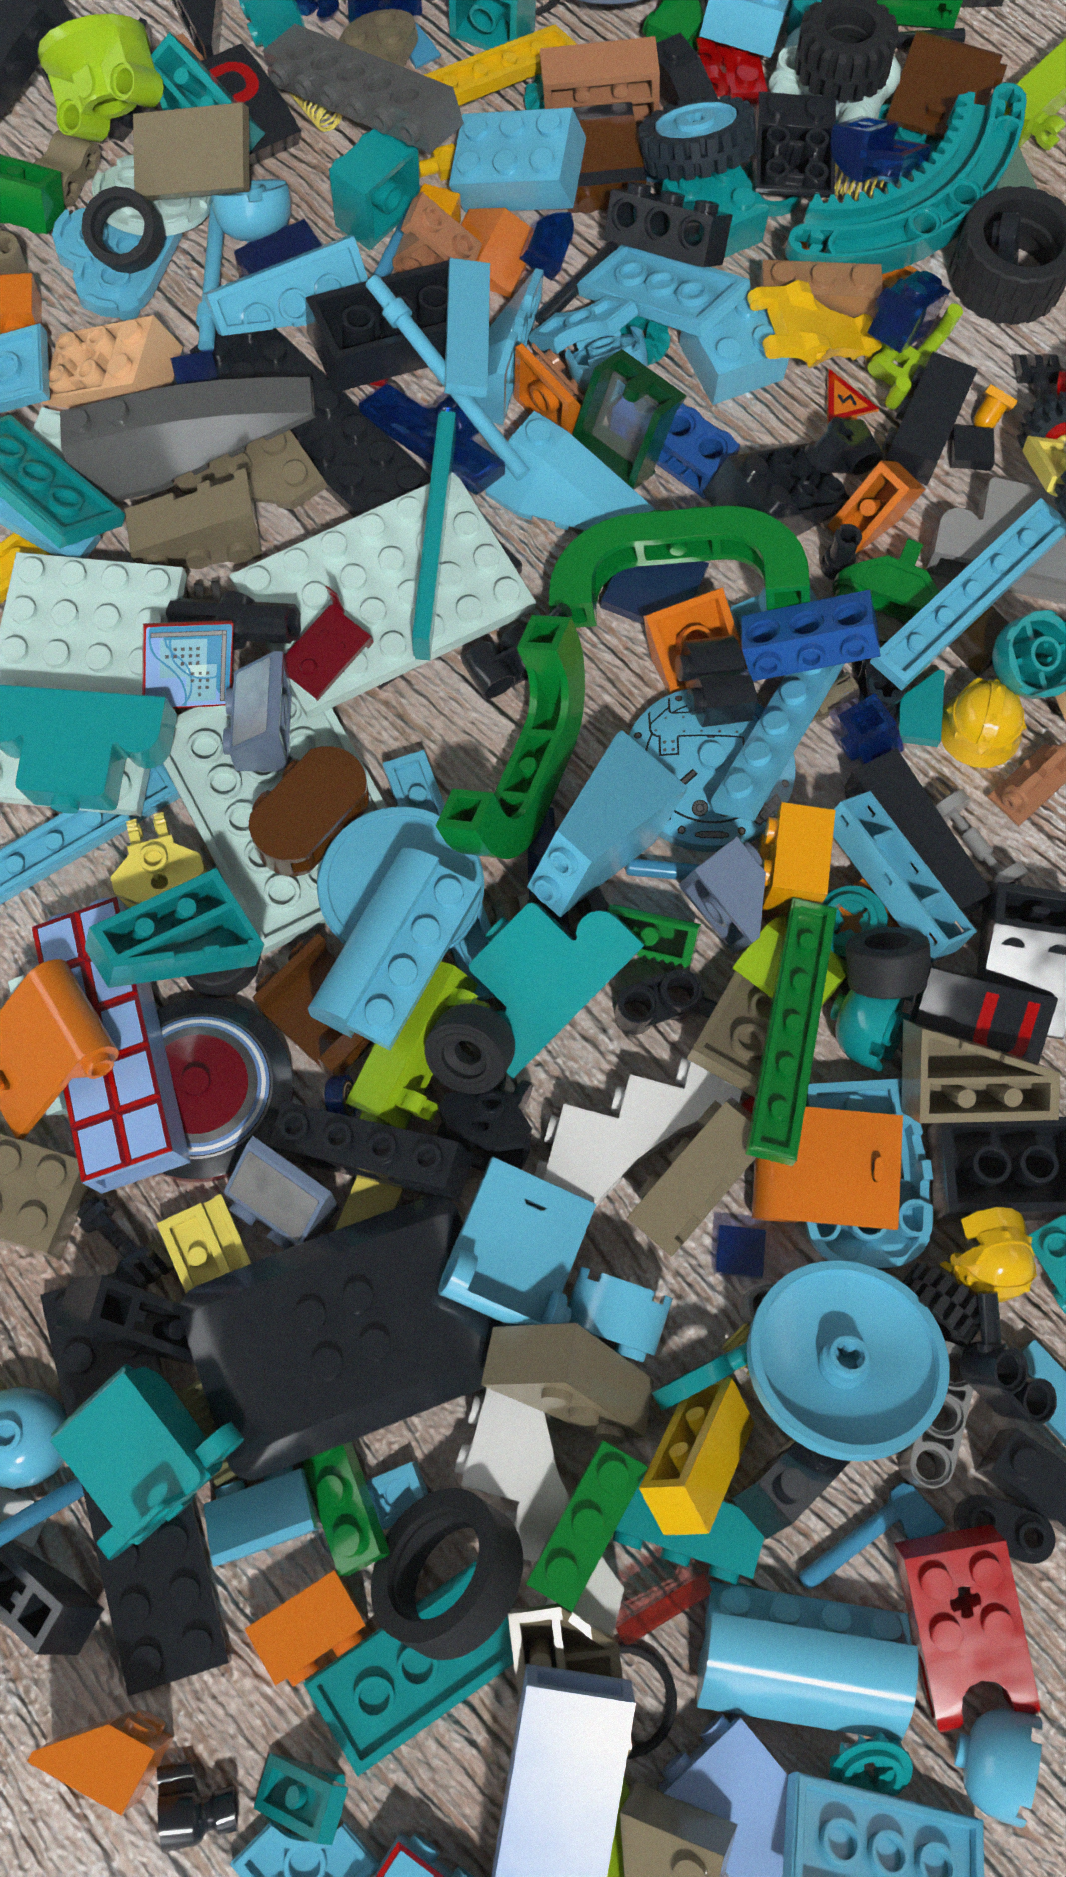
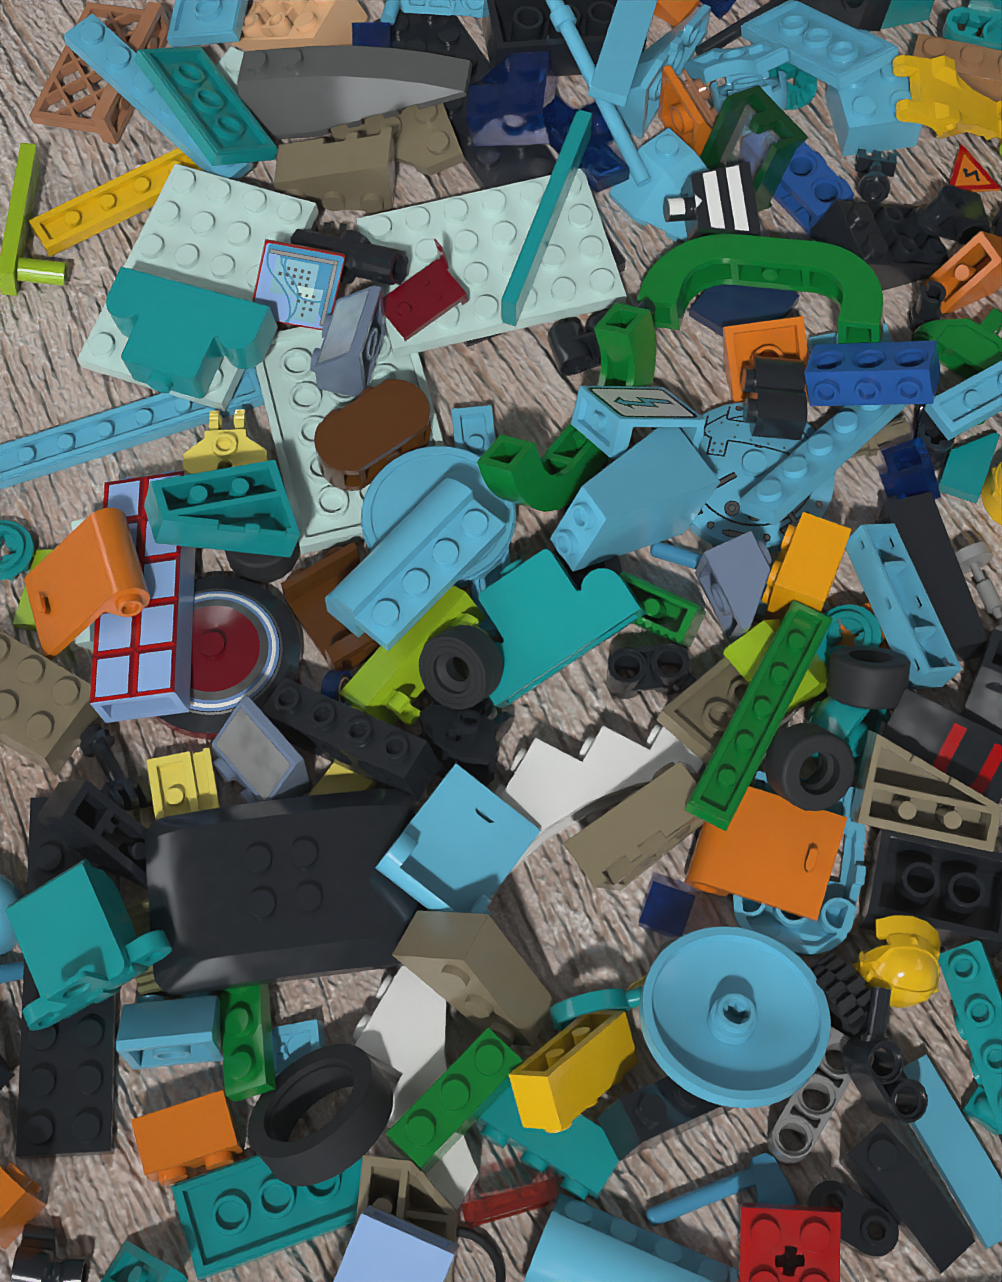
camera: 20 degrees right, 5 degrees down
(365, 413) = (513, 102): none -> clear blue slope
(563, 734) = (611, 412): none -> medium azure panel
(605, 484) = (716, 203): none -> black torso
(619, 1313) = (539, 931): medium azure brick -> none
(759, 431) = (875, 185): none -> black hinge
(876, 1081) = (829, 780): none -> black tyre

